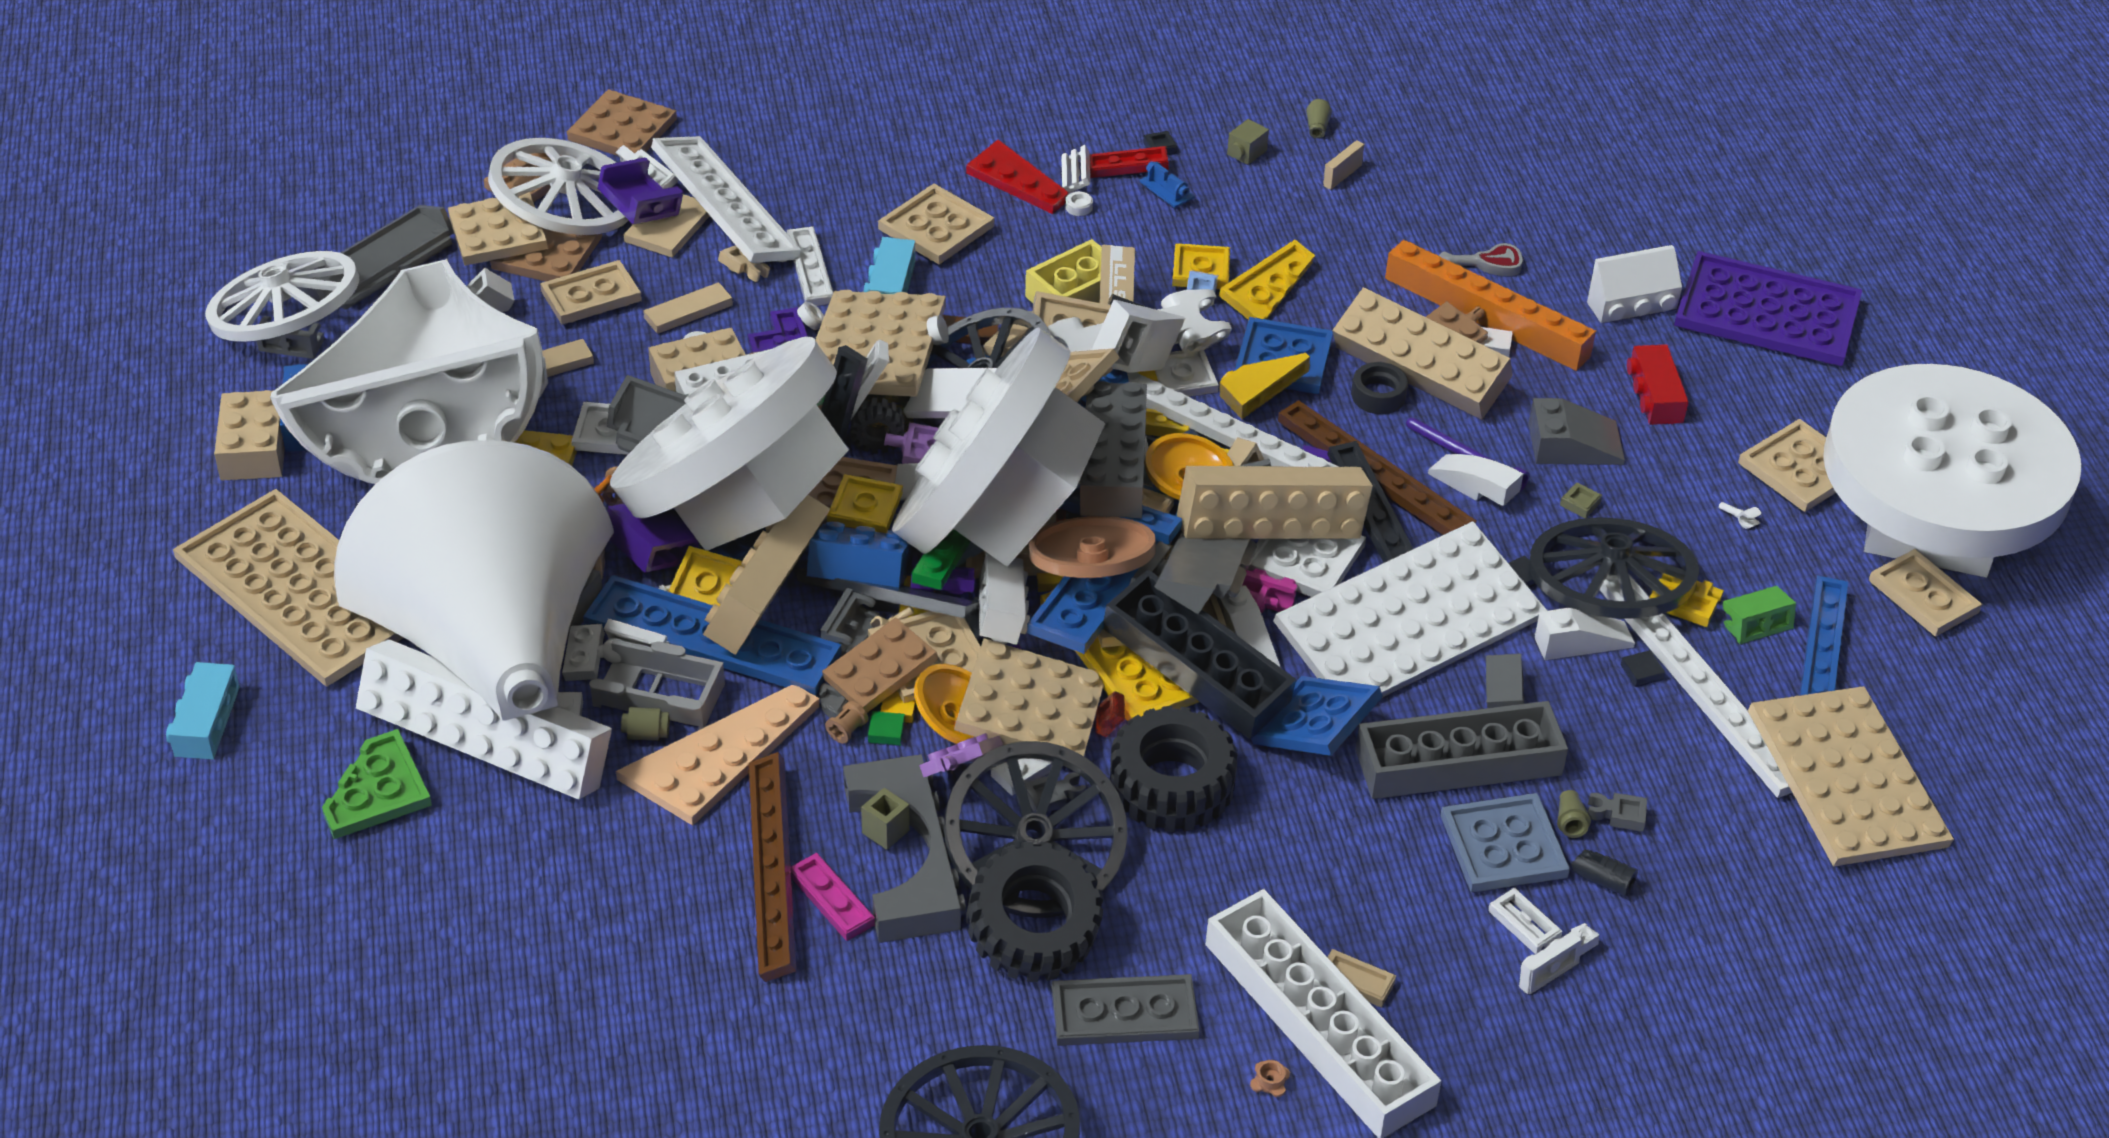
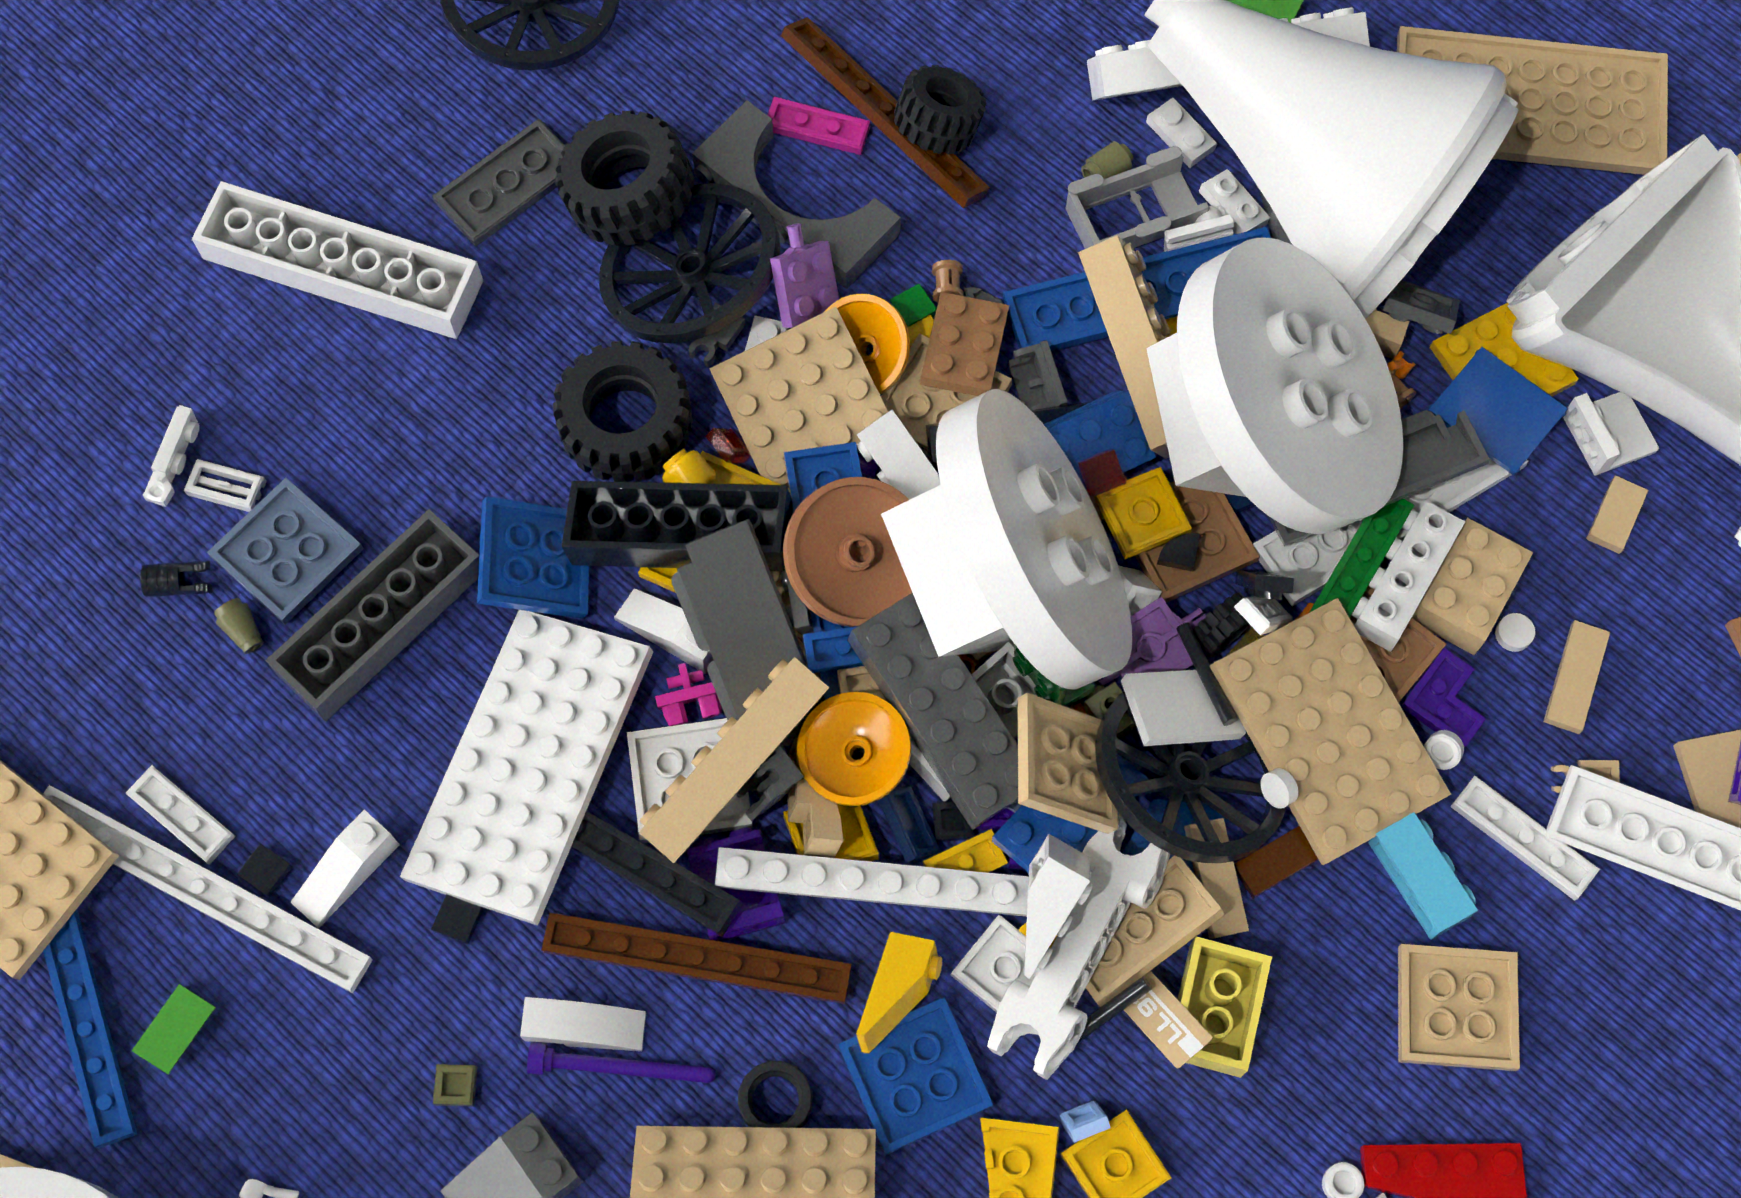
camera: 145 degrees right, 25 degrees up
(572, 430) = (1502, 407): none -> blue piece
(590, 292) = (1686, 618): tan plate -> none
(708, 763) = (1026, 180): light nougat wing -> none
(735, 818) = (939, 109): none -> black tyre
(864, 470) = (1180, 552): none -> black tile
(874, 521) = (1101, 472): none -> clear red tile
(885, 818) = (825, 196): olive brick -> none
(920, 401) = (1205, 673): none -> black bar
(1161, 689) = (688, 468): none -> yellow head
(1273, 1070) = (349, 186): nougat plate -> none
(1367, 979) = (337, 333): tan tile -> none
(1504, 680) = (384, 737): dark grey hinge -> none
(1614, 557) = (296, 904): black wheel -> none
(1622, 810) = (192, 661): dark grey plate -> none
(1687, 733) = (180, 814): none -> white tile
(1700, 606) = (262, 992): yellow plate -> none

